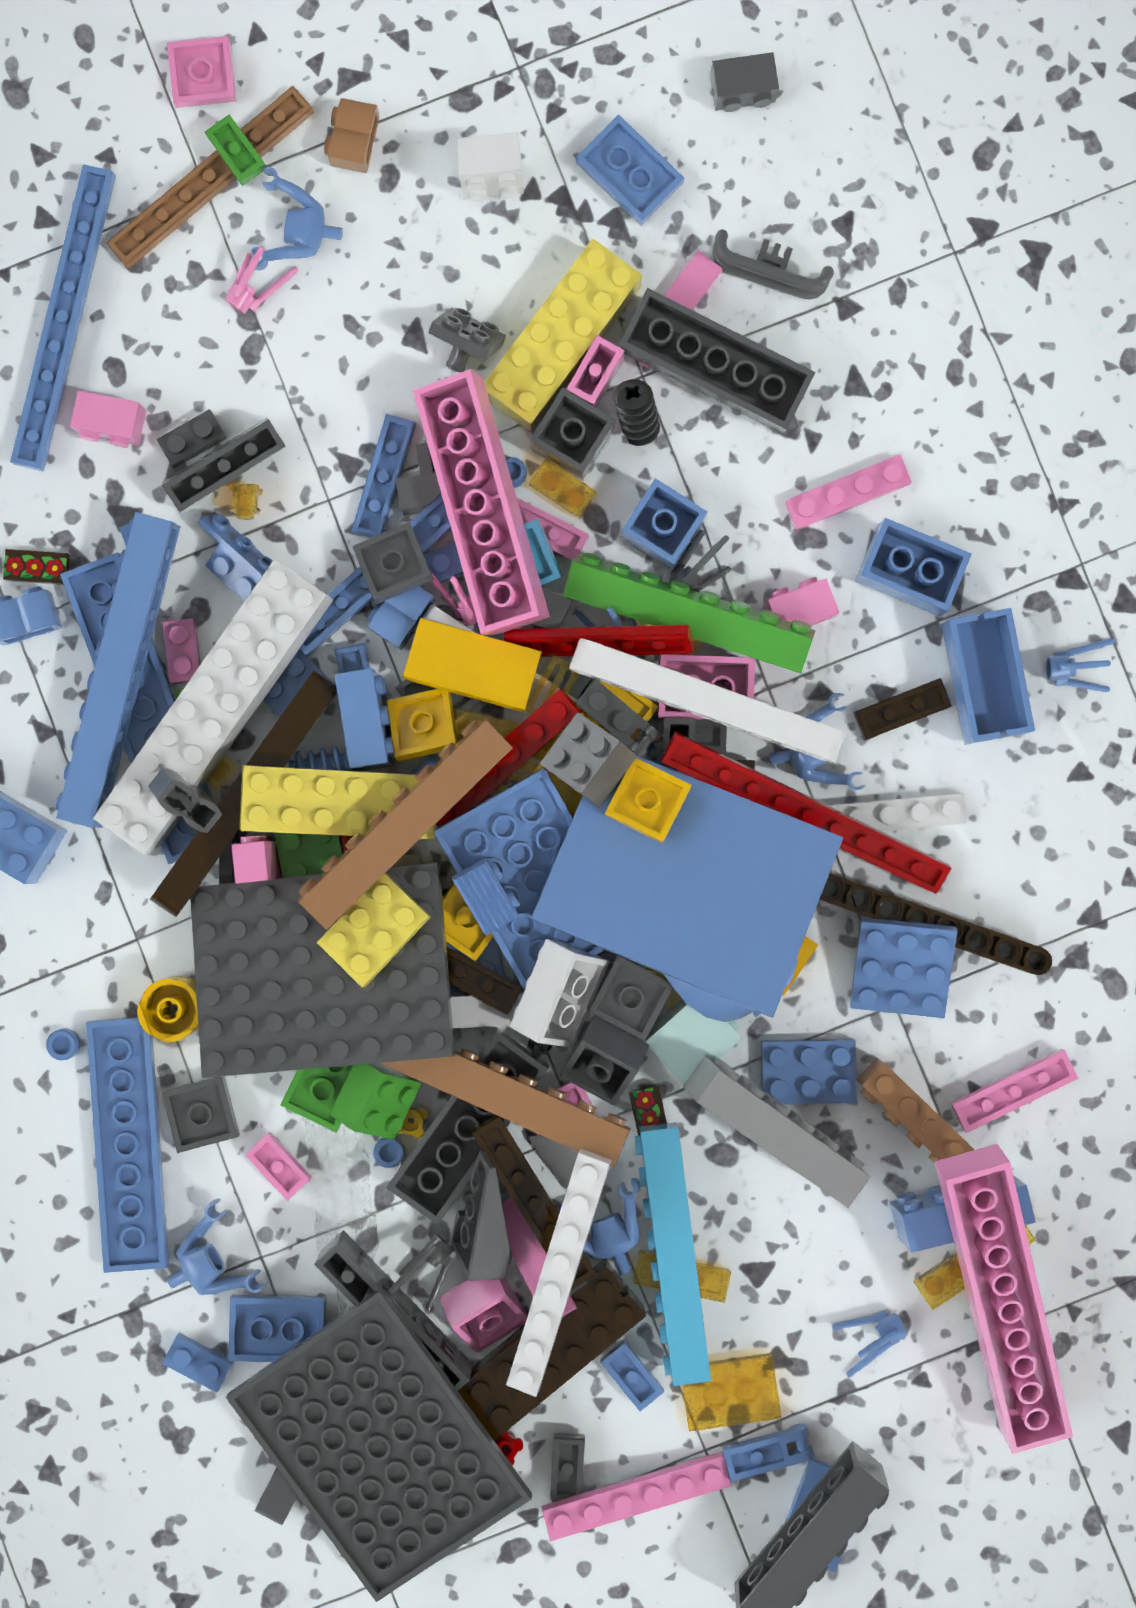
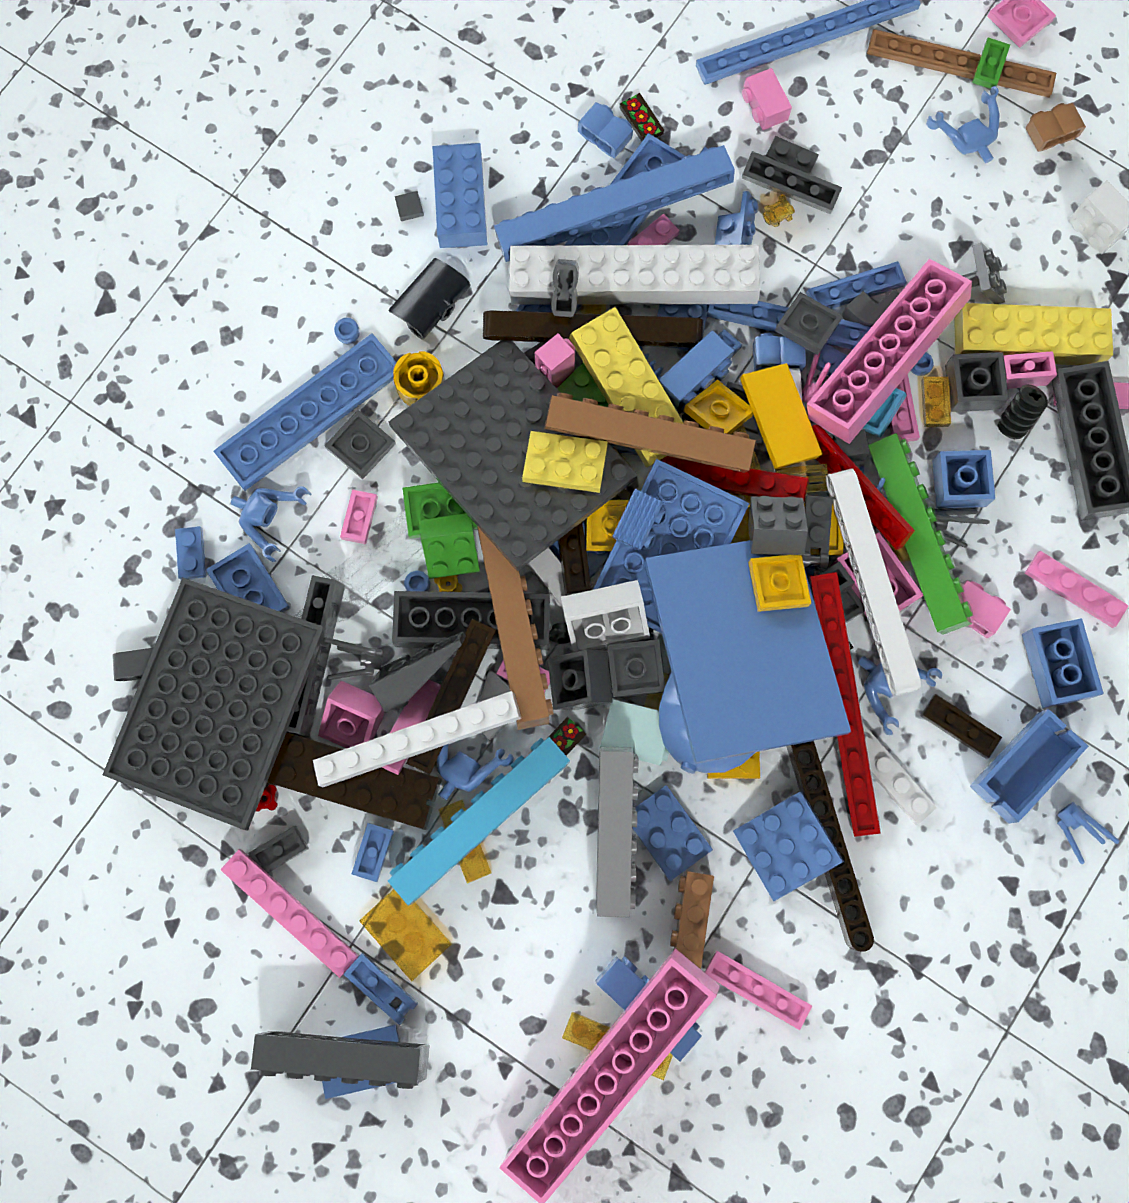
camera: 55 degrees right, 10 degrees down
(87, 934) = (430, 297): none -> black panel
(241, 294) = (904, 126): bright pink plant -> none
(889, 1331) = (525, 1017): medium blue plant -> none

